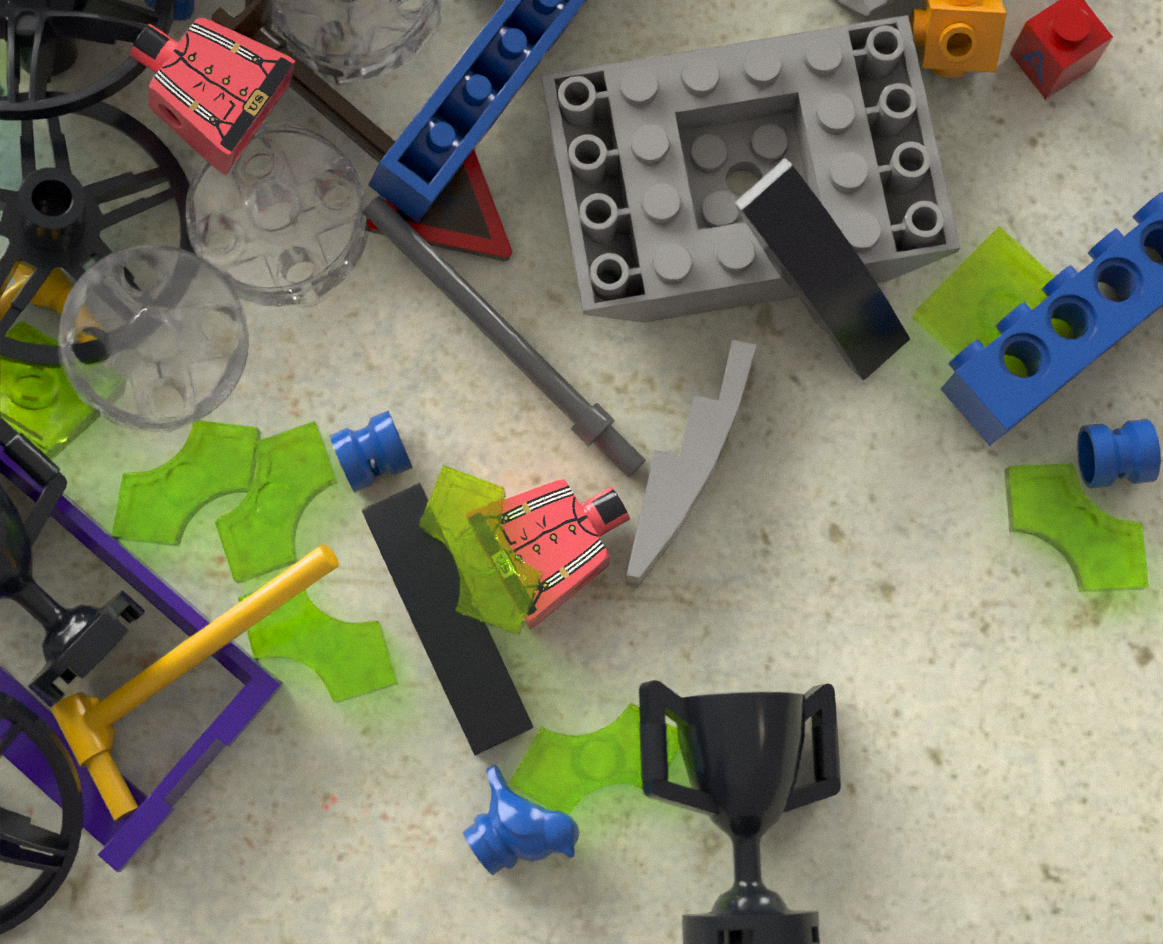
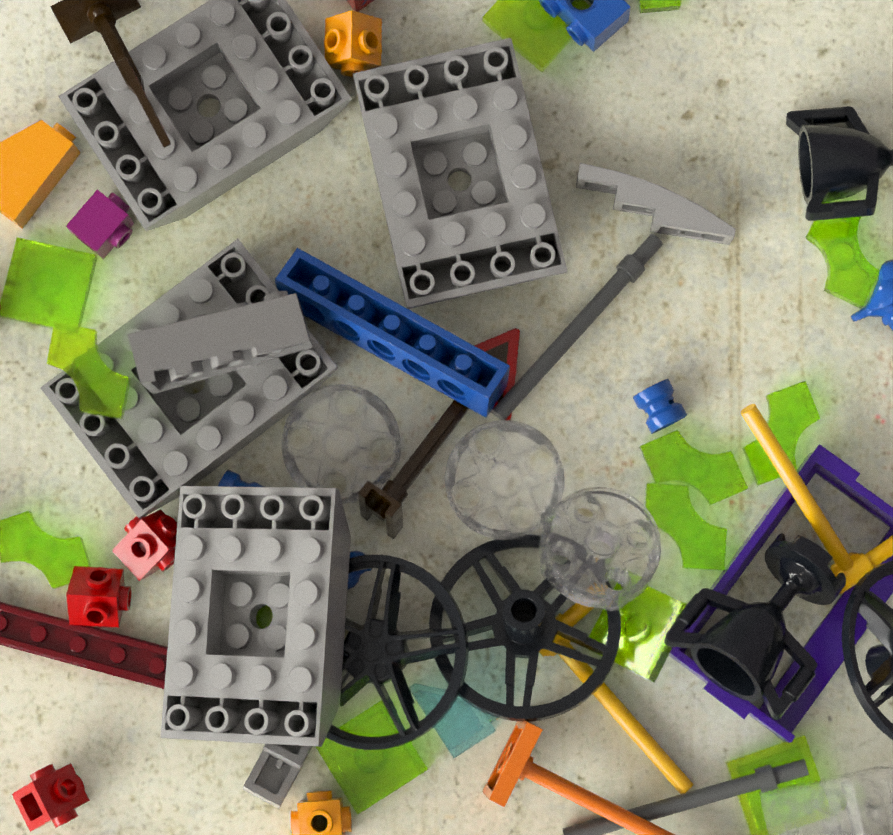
camera: 90 degrees left, 5 degrees up
(213, 86) = (436, 516): coral torso -> none
(455, 644) = (763, 349): black slope -> none
(493, 579) = (746, 316): clear neon green tile -> none
(560, 540) = (713, 290): coral torso -> none
(822, 268) = (540, 118): black slope -> none

